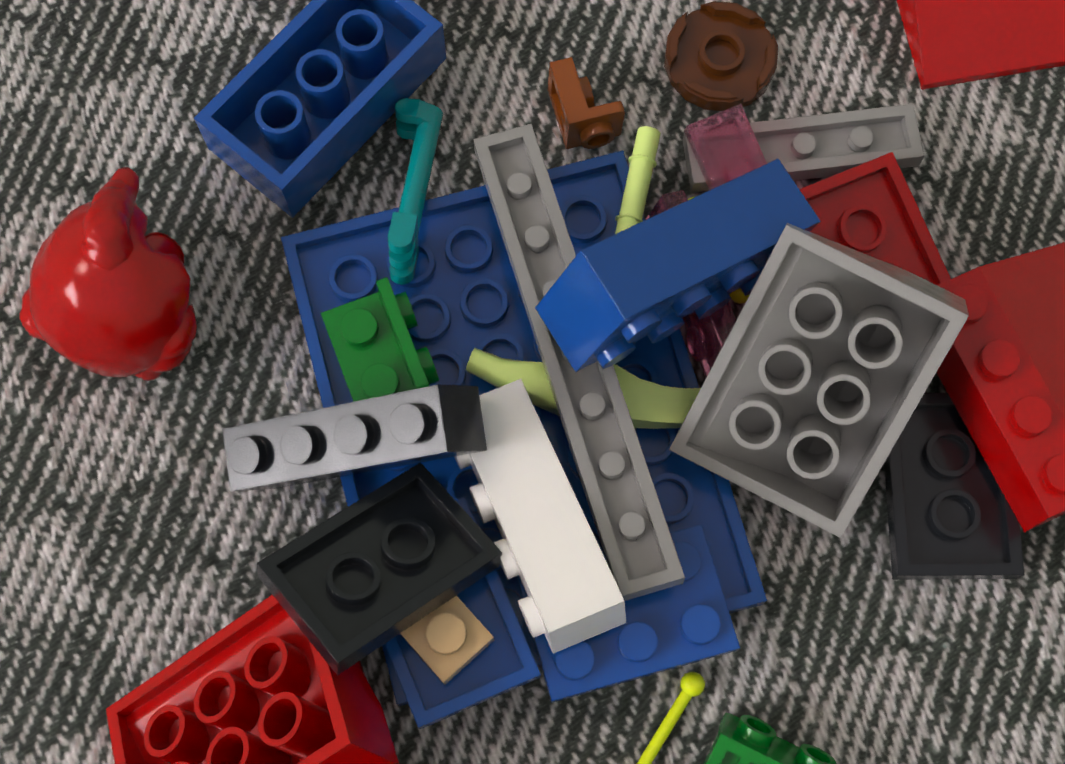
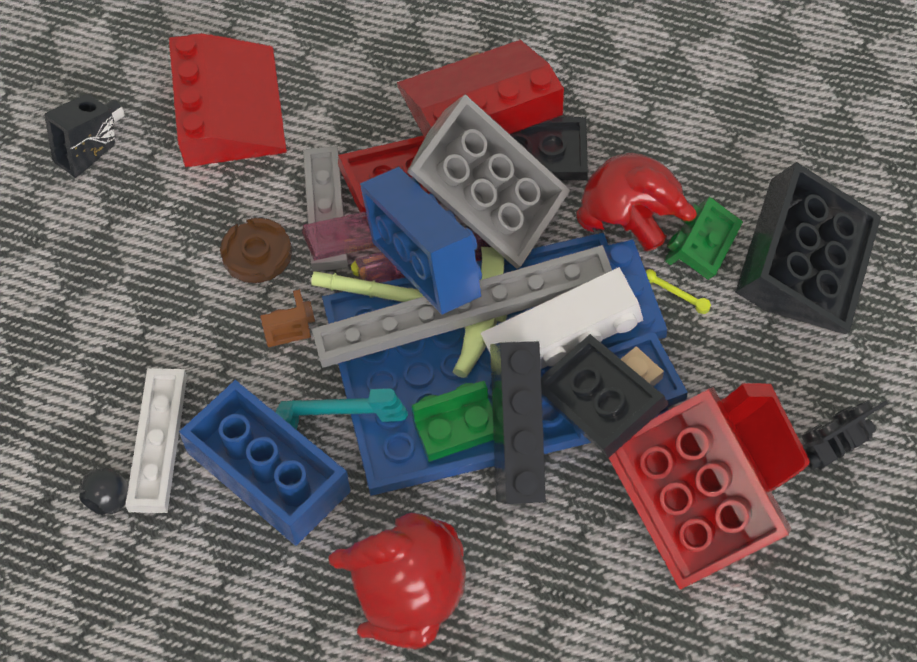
camera: 85 degrees left, 15 degrees down
(835, 655) = (628, 193): none -> red piece

